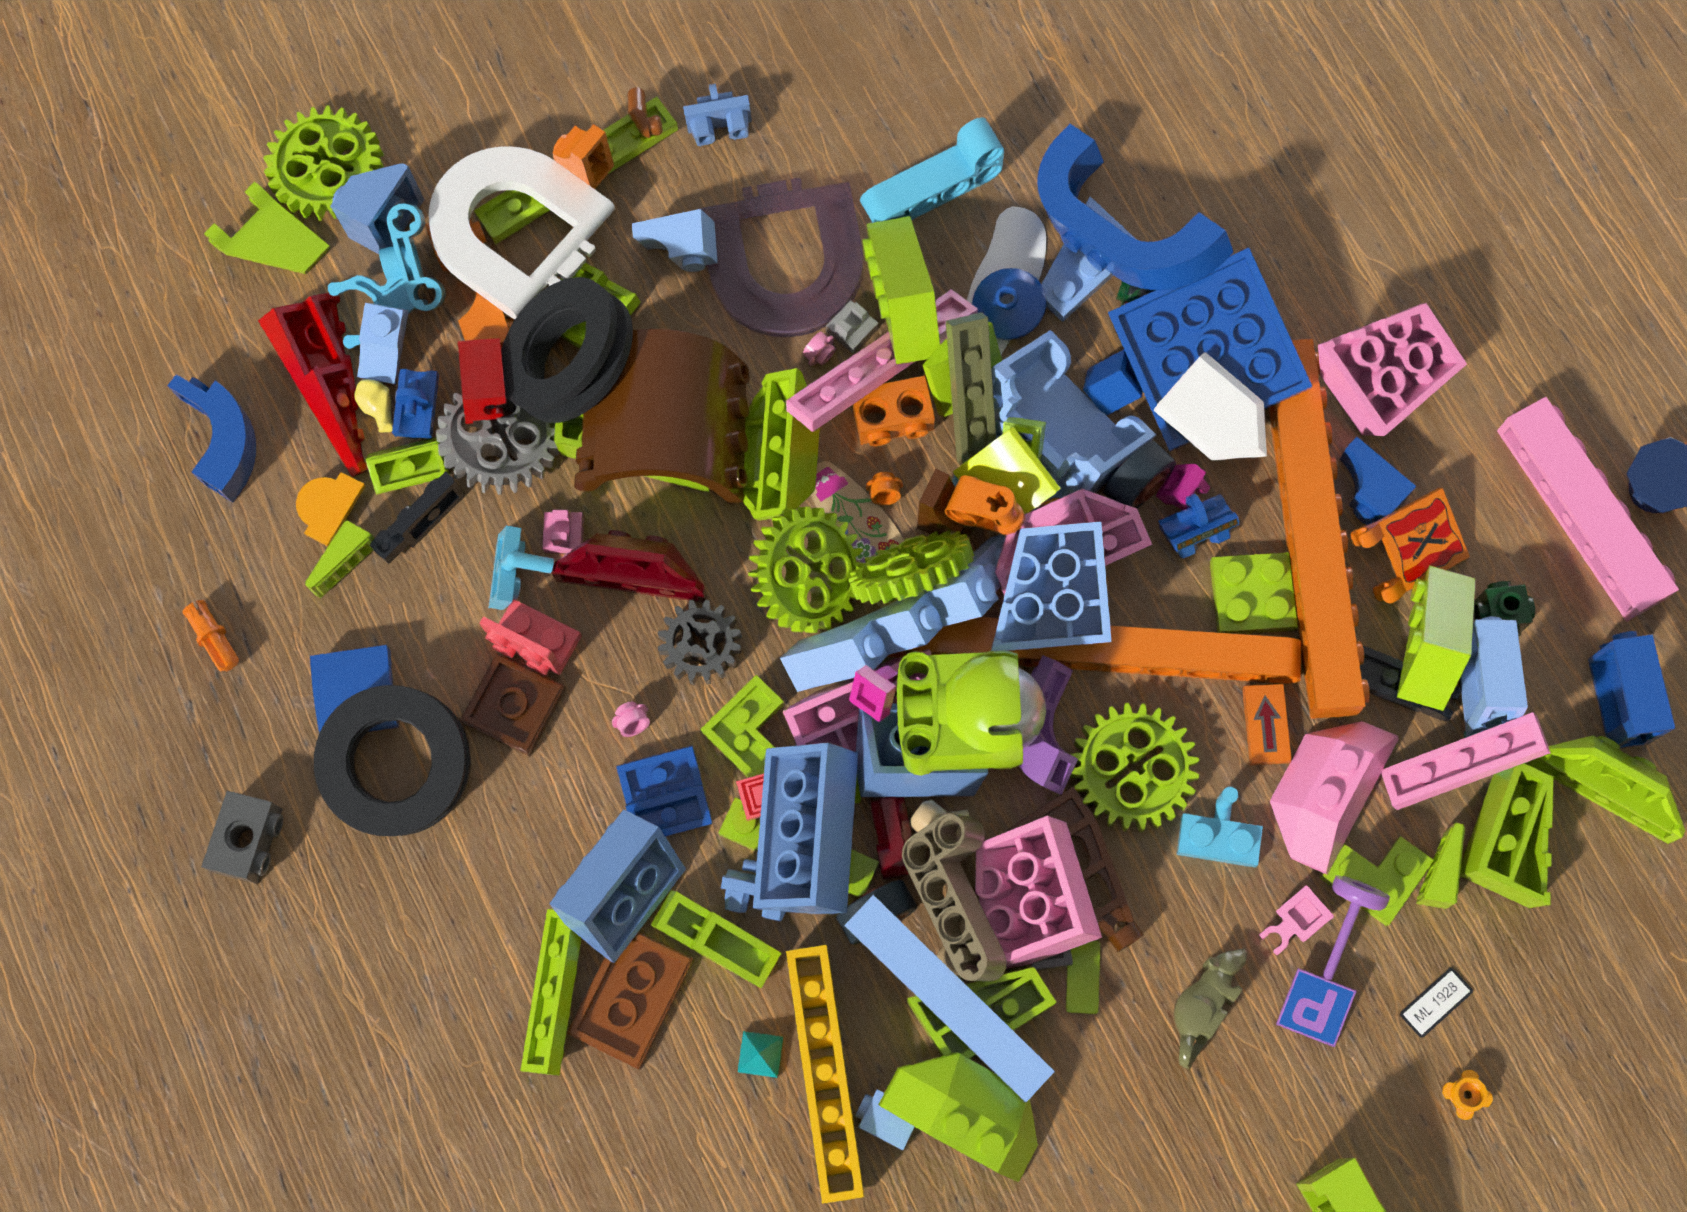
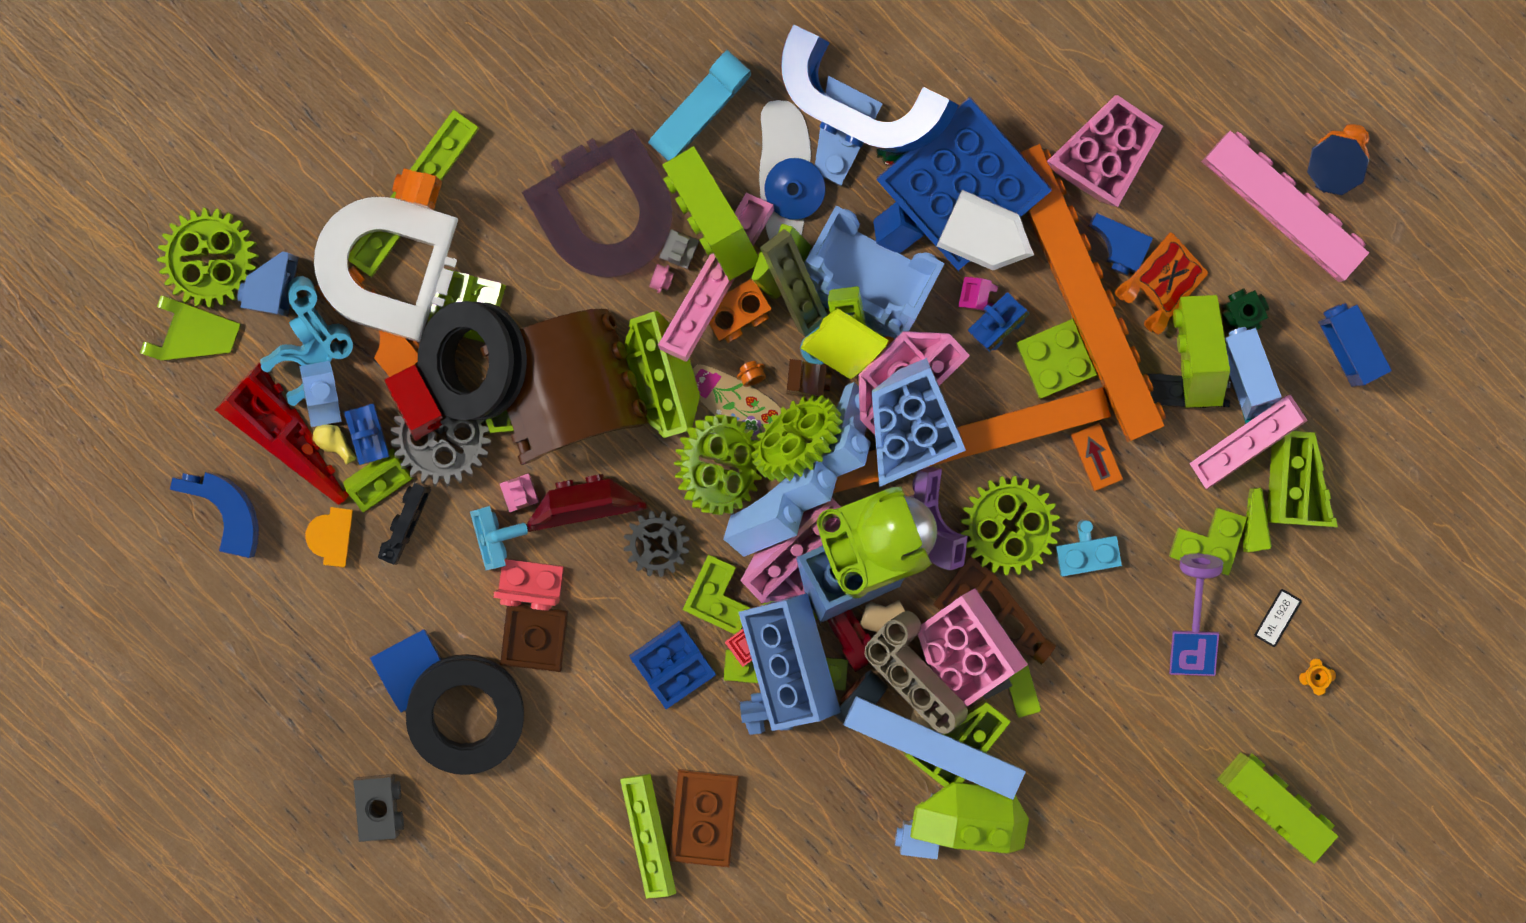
camera: 20 degrees left, 15 degrees up
(211, 636) = (287, 667): orange axle -> none
(341, 556) = (361, 567): lime slope -> none
(618, 885) = (667, 747): medium blue slope -> none
(631, 719) = (627, 618): bright pink plate -> none
(637, 111) = (445, 132): dark orange arm -> none
(685, 235) = (525, 228): light blue arch -> none
(716, 938) = (749, 757): lime slope -> none
(718, 112) = (496, 116): medium blue hips -> none
(760, 1054) = (811, 825): teal slope -> none
(825, 1074) = (864, 826): yellow brick -> none
(874, 691) = (805, 547): dark pink tile -> none
(985, 506) = (833, 373): orange piece -> none
(1140, 475) = (943, 302): black wheel -> none
(1200, 1006) = (1112, 682): olive animal -> none
(1302, 916) = (1163, 592): bright pink plate -> none
(1328, 789) = (1155, 490): bright pink wedge -> none
(1616, 782) = (1361, 413): lime wedge -> none

